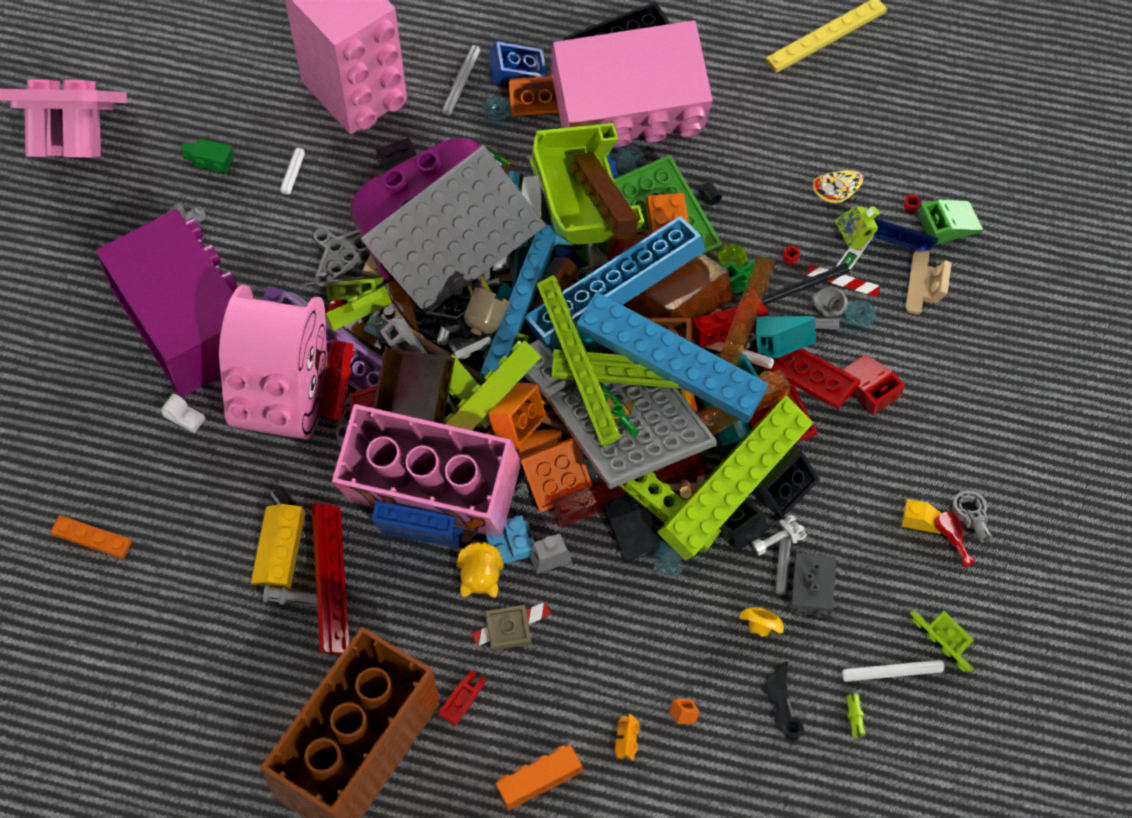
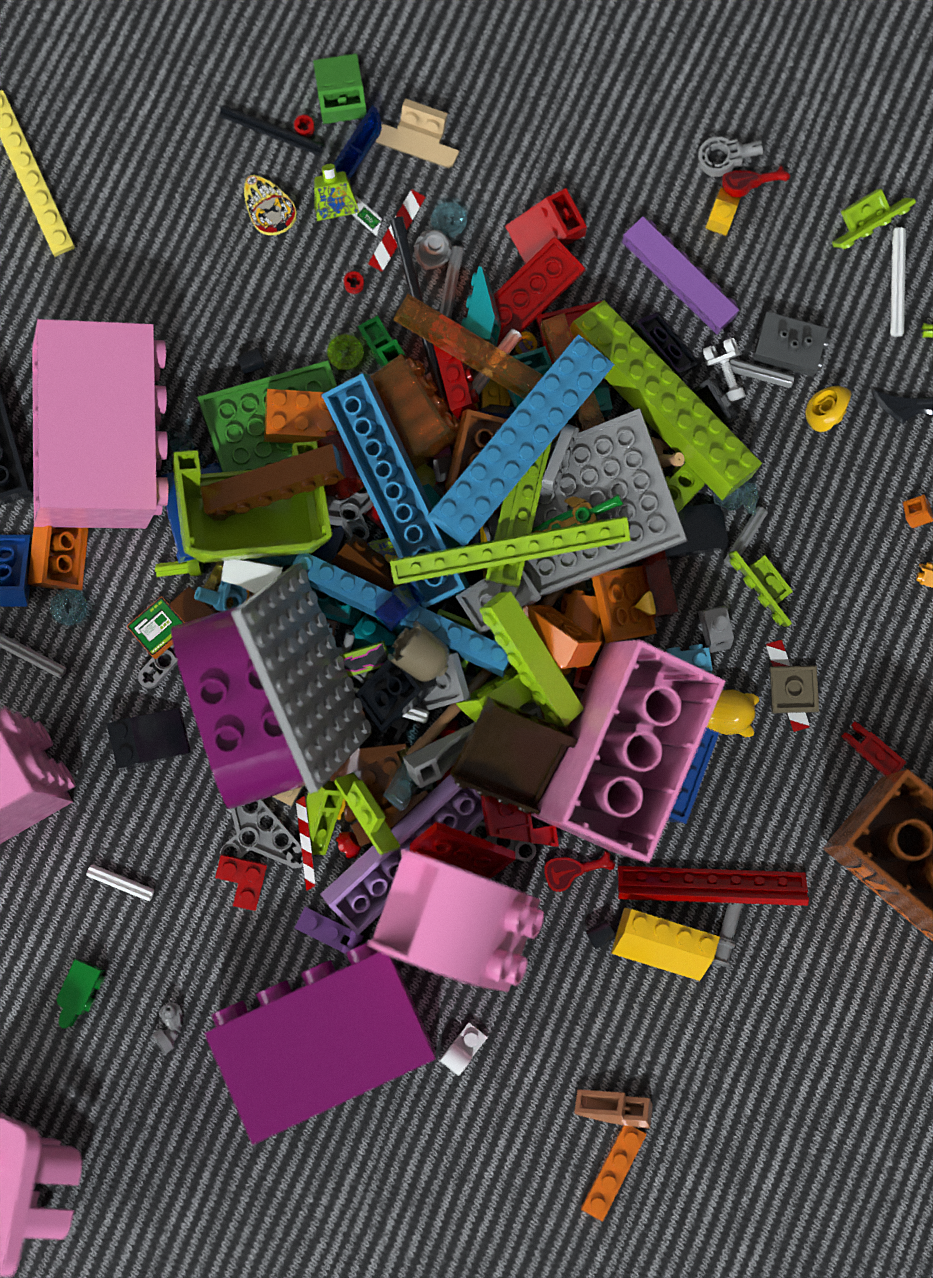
camera: 85 degrees left, 20 degrees up
(141, 528) = (614, 1108): none -> nougat slope
(303, 250) = (247, 874): none -> red plate
(325, 467) = (562, 870): none -> red piece
(522, 292) = (399, 605): none -> clear blue slope
(560, 491) = (646, 604): none -> yellow slope
(595, 589) = (766, 582): none -> lime bracket
(635, 572) = (747, 533): none -> light grey axle
(678, 389) = (560, 457): none -> light grey beam
(854, 490) = (680, 275): none -> medium lavender brick
(902, 182) = (271, 130): none -> black axle

